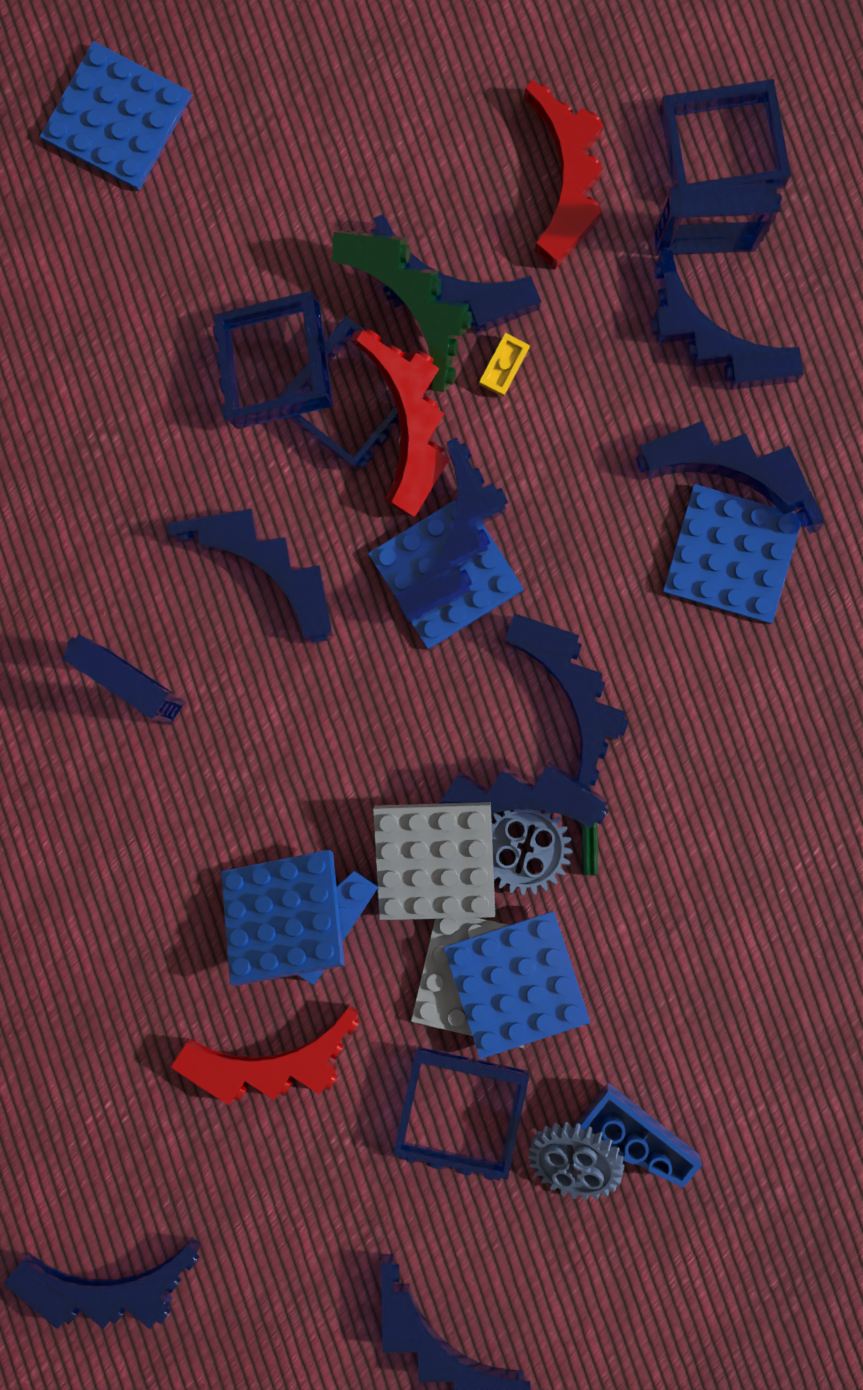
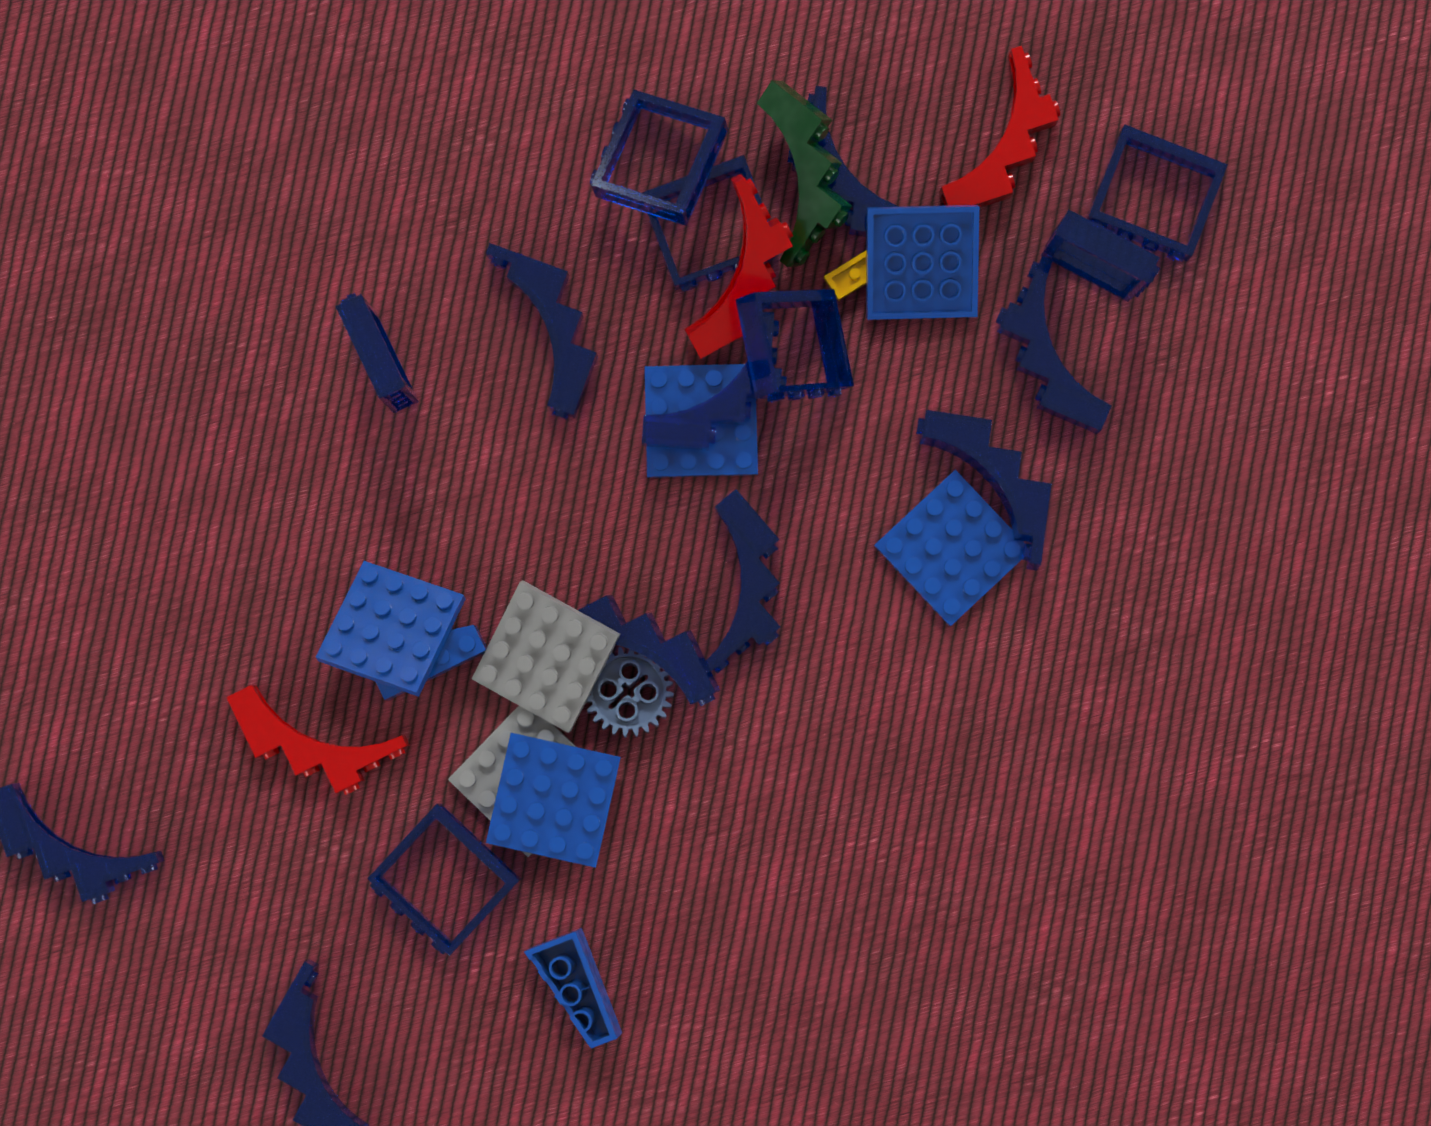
camera: 30 degrees right, 0 degrees up
(514, 430) = (829, 335): none -> clear blue window
(559, 317) = (922, 262): none -> blue plate
(563, 1151) = (515, 974): sand blue gear -> none
(589, 850) = (683, 725): dark green axle -> none

